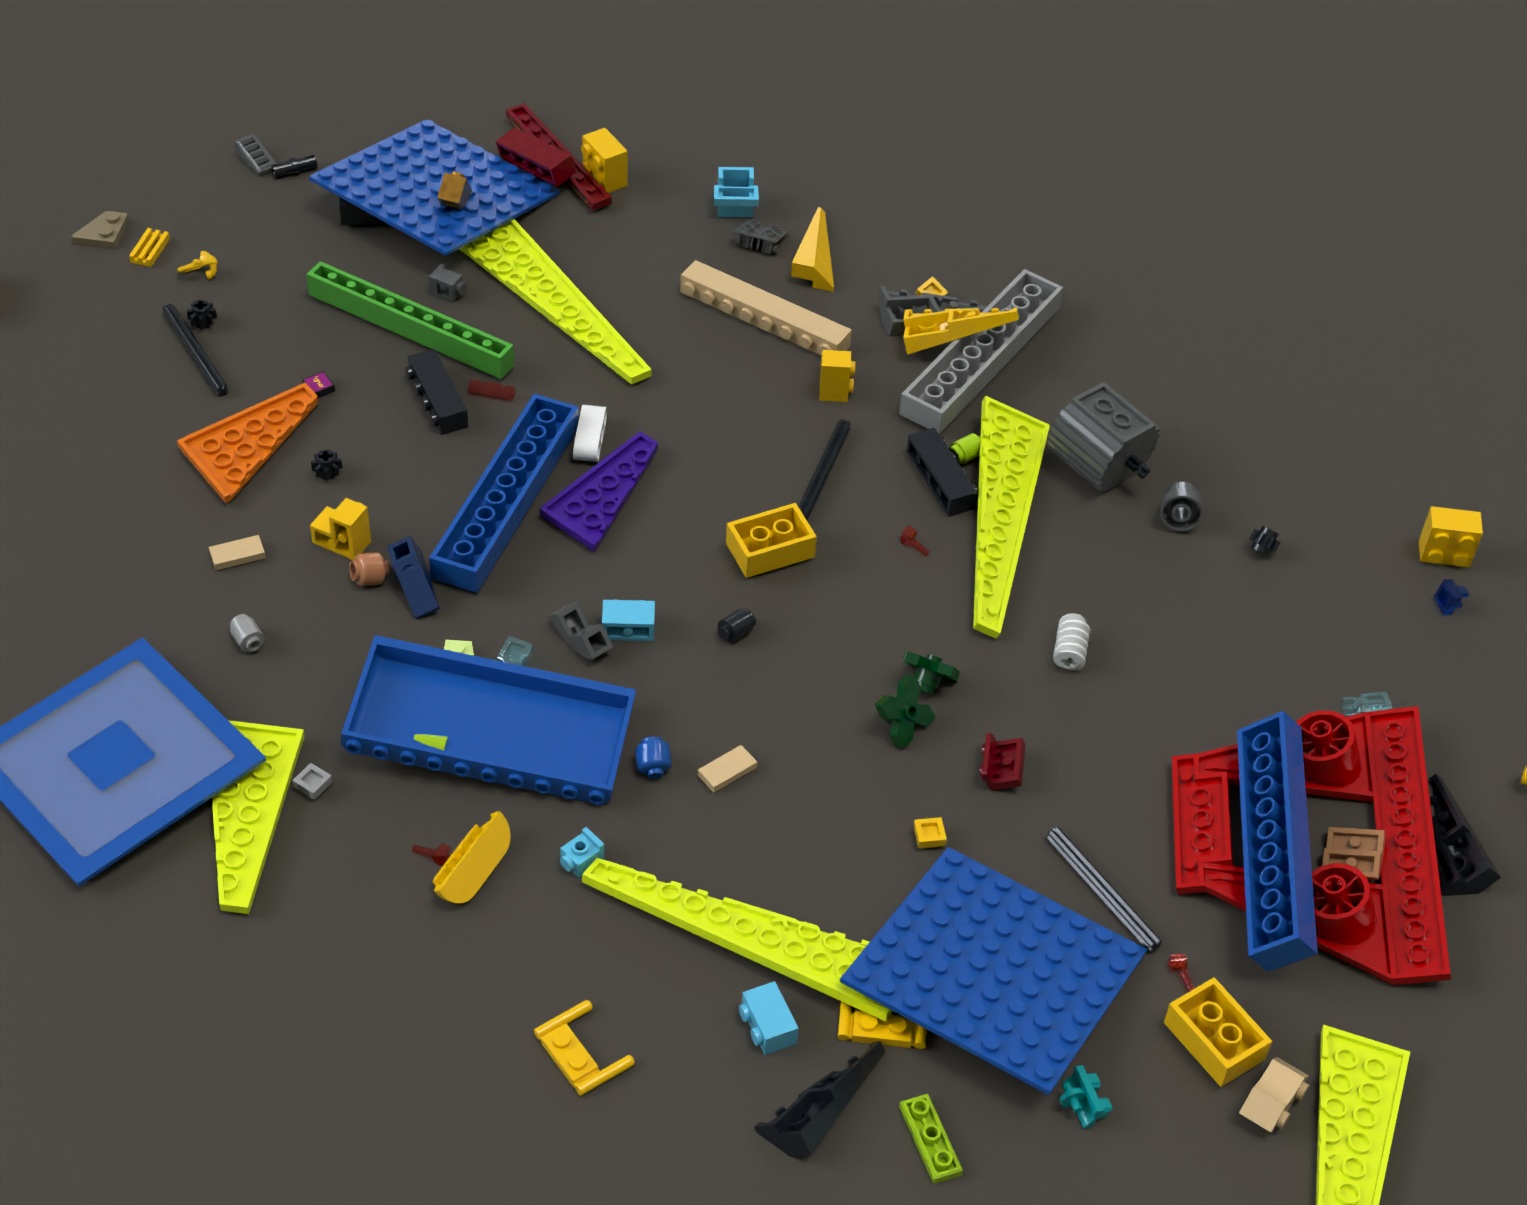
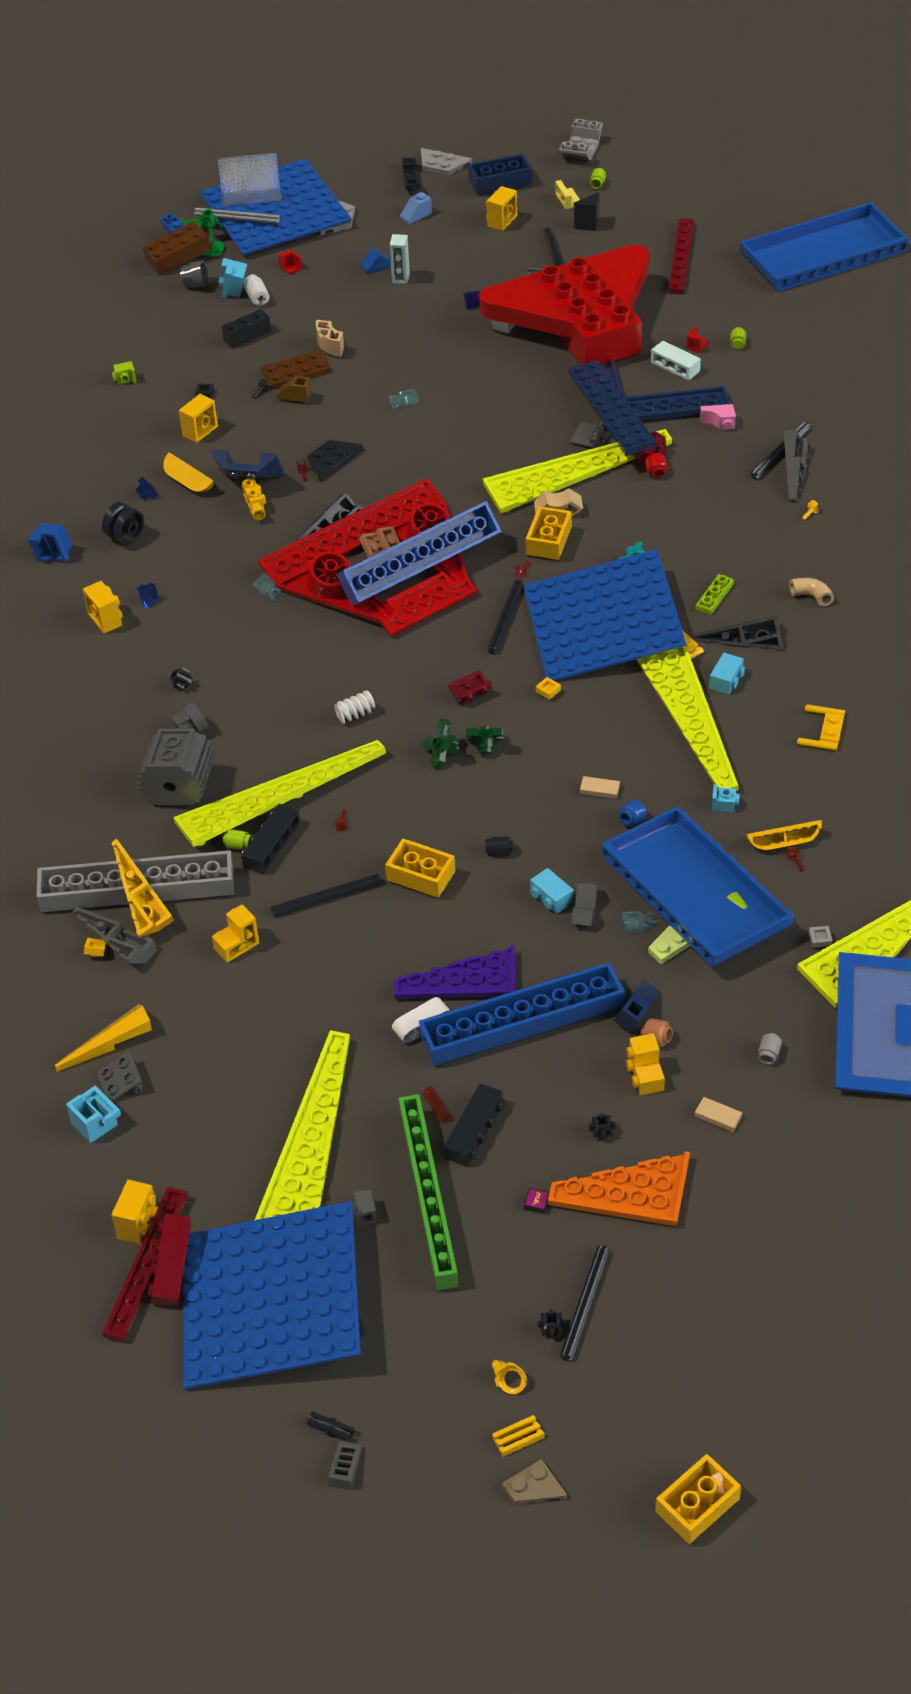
camera: 125 degrees left, 0 degrees up
(454, 190) = (282, 1245): pearl gold slope -> none
(763, 309) = (205, 1018): tan brick -> none

